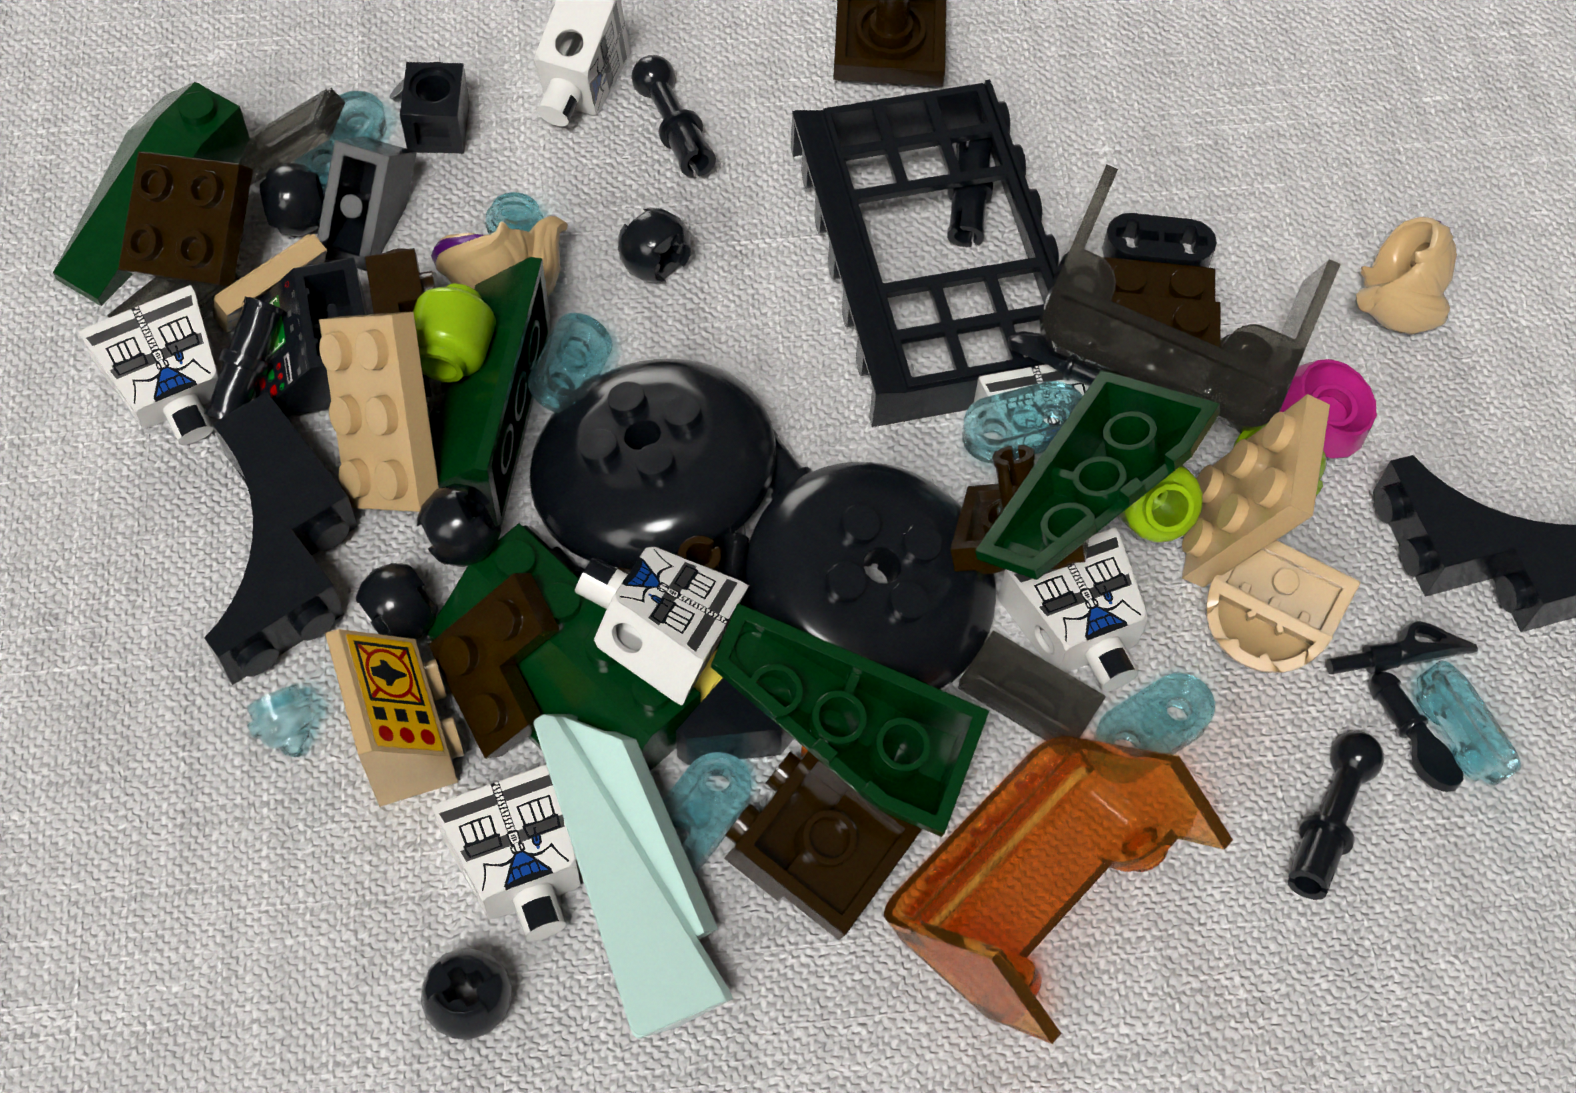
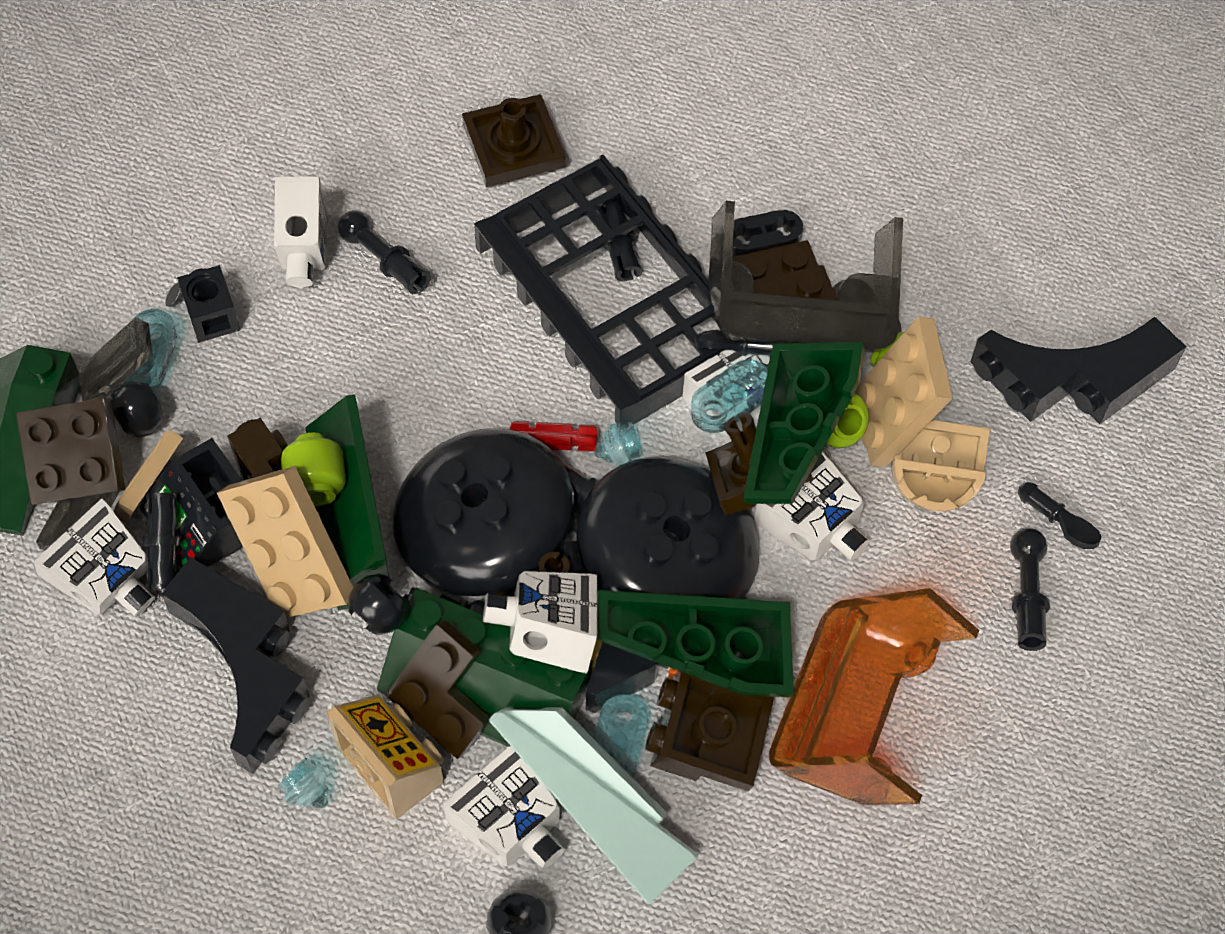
camera: 20 degrees left, 0 degrees up
(364, 197) = (189, 390): black slope -> none
(397, 601) = (349, 673): black piece -> none
(476, 257) = (299, 408): tan hair -> none
(515, 210) = (304, 368): clear light blue plate -> none
(569, 361) = (394, 460): clear light blue plate -> none
(654, 245) = (415, 354): black piece -> none
(792, 403) = (560, 435): none -> red axle
(863, 438) = (619, 444): none -> clear light blue plate
(1030, 690) = (802, 578): clear smoke tile -> none
(1145, 717) = (887, 572): clear light blue plate -> none
(1350, 401) = (926, 300): dark pink hat -> none
(1404, 652) = (1033, 464): black hand -> none
(1410, 277) = (940, 203): tan hair -> none
(1479, 740) = (1104, 509): clear light blue plate -> none

